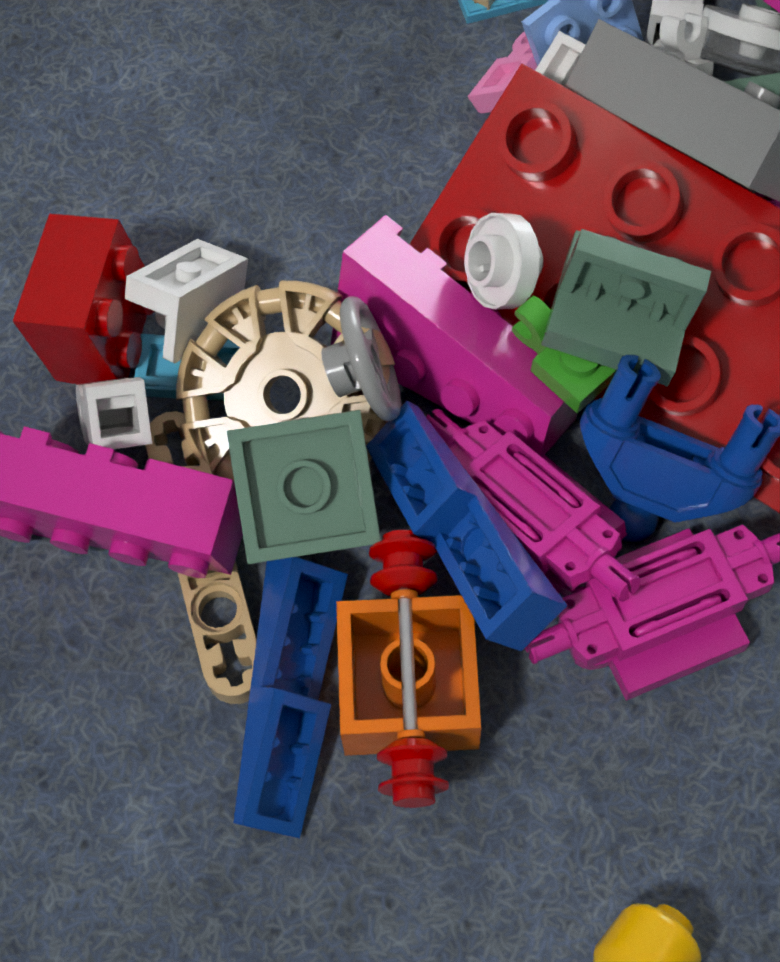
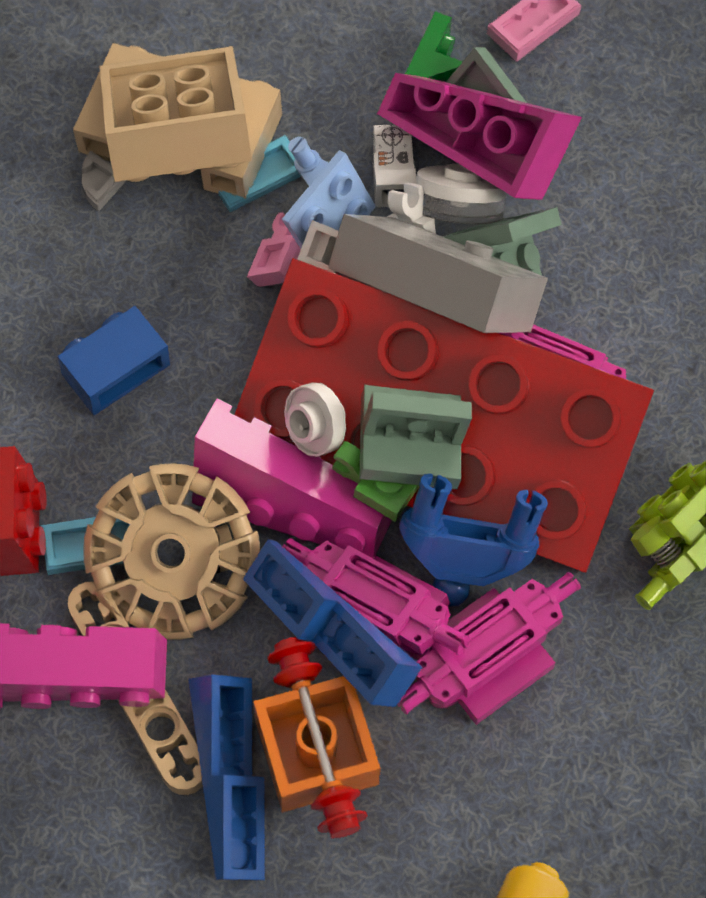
camera: 20 degrees left, 0 degrees up
(114, 413) = (43, 595): white leg -> none
(186, 289) = (75, 486): white panel -> none
(281, 158) = (113, 359): none -> blue piece
(303, 486) = (209, 621): sand green bracket -> none
(357, 362) = (226, 520): light grey piece -> none

